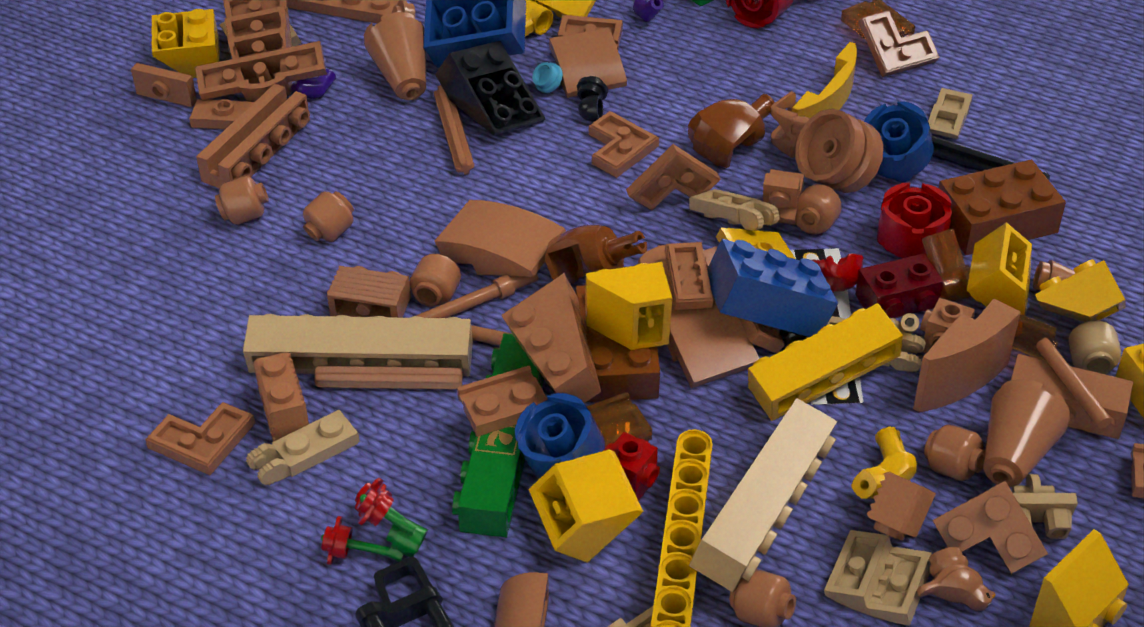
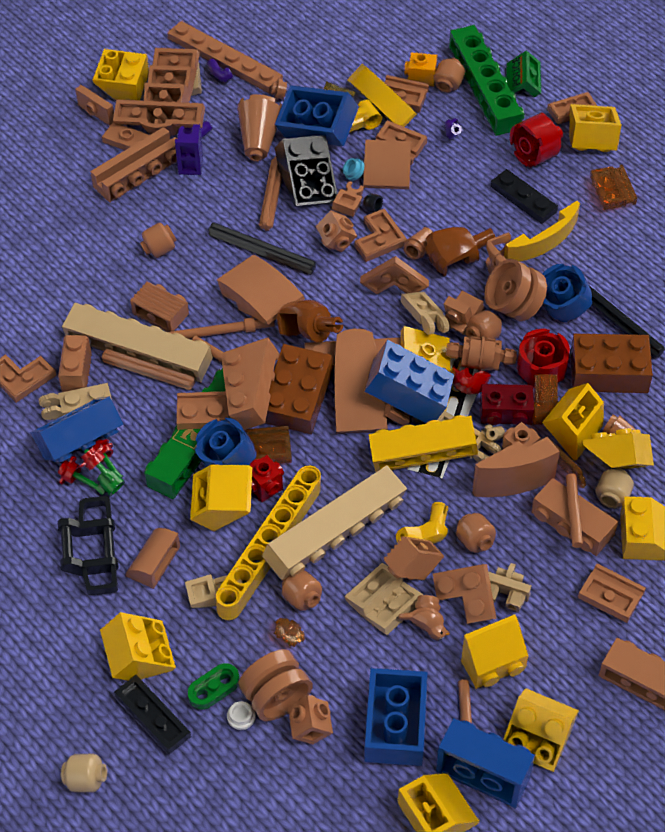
camera: 20 degrees right, 10 degrees up
(241, 200) = (108, 211): nougat head -> none
(313, 15) = (215, 70): none -> dark purple arm
(324, 103) = (189, 151): none -> dark purple hinge
(330, 477) = (77, 429): none -> blue brick
(435, 280) = (206, 307): nougat head -> none
(464, 192) = (262, 248): none -> black axle
(559, 113) = (348, 200): none -> nougat plate
(565, 147) = (336, 231): none -> nougat brick
(591, 86) = (379, 187): black plate -> none
(630, 305) = (301, 371): yellow slope -> none
(676, 134) = (417, 244): none -> nougat cone
(688, 276) = (360, 357): nougat plate -> none
(775, 58) = (524, 196): none -> black plate
(833, 236) = (481, 353): none -> nougat piece
(893, 52) = (610, 216): nougat tile -> none
(949, 113) = (623, 278): tan slope -> none
(1022, 429) = (520, 534): nougat cone -> none

